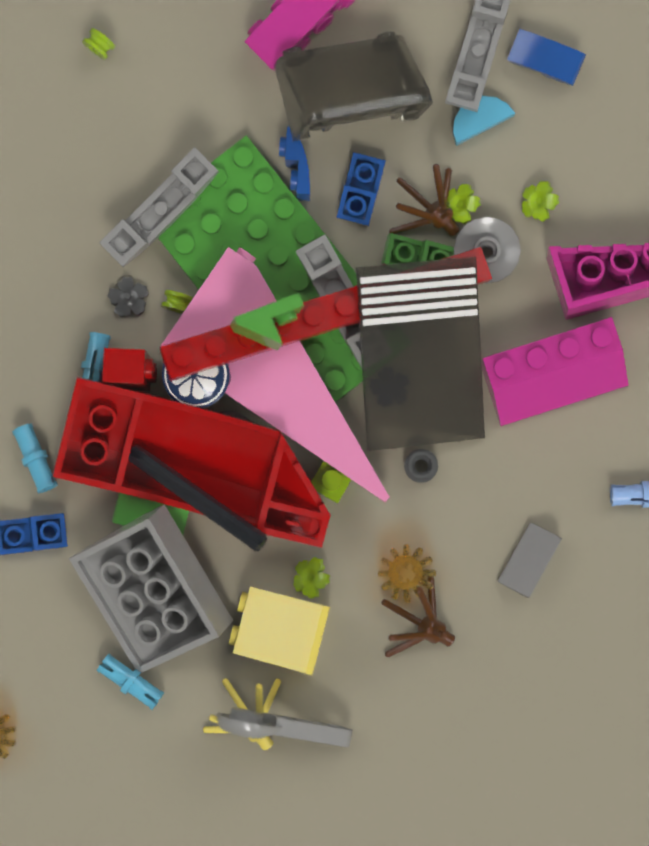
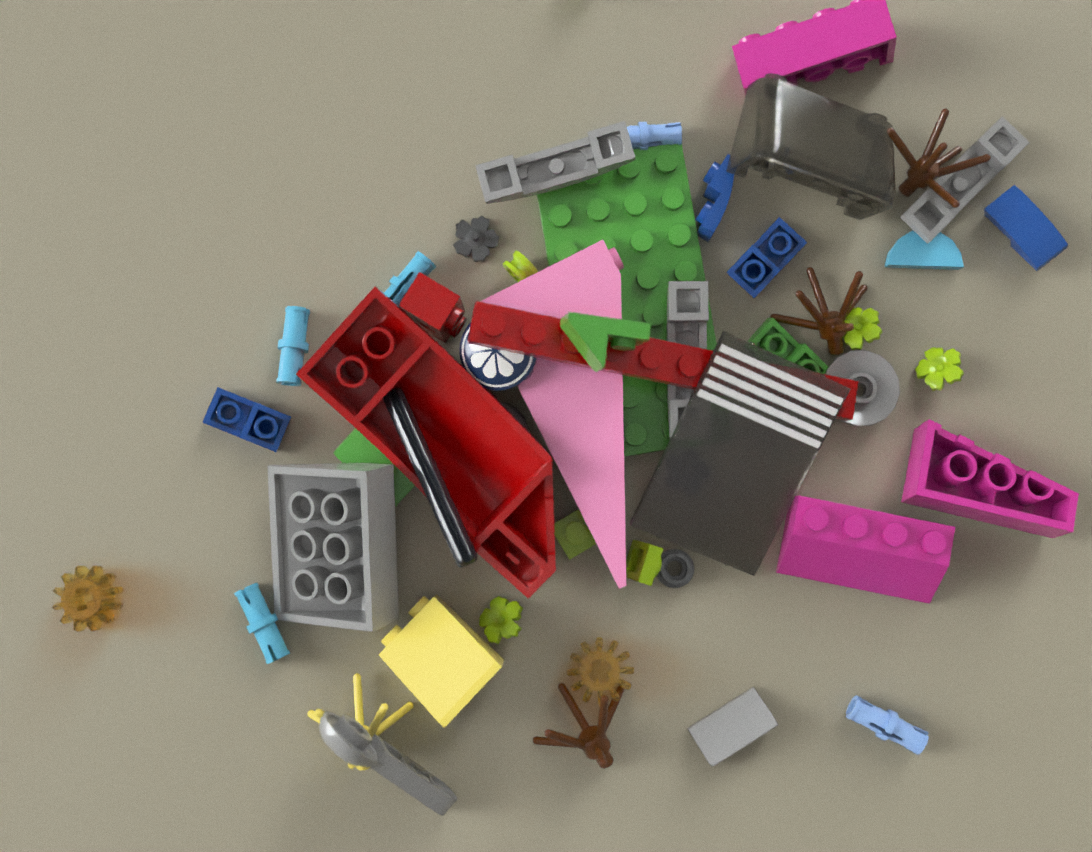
camera: 20 degrees right, 0 degrees up
(216, 145) = (651, 135): none -> light blue pin
(394, 474) = (643, 562): none -> lime plate
(446, 54) = (926, 169): none -> reddish brown plant

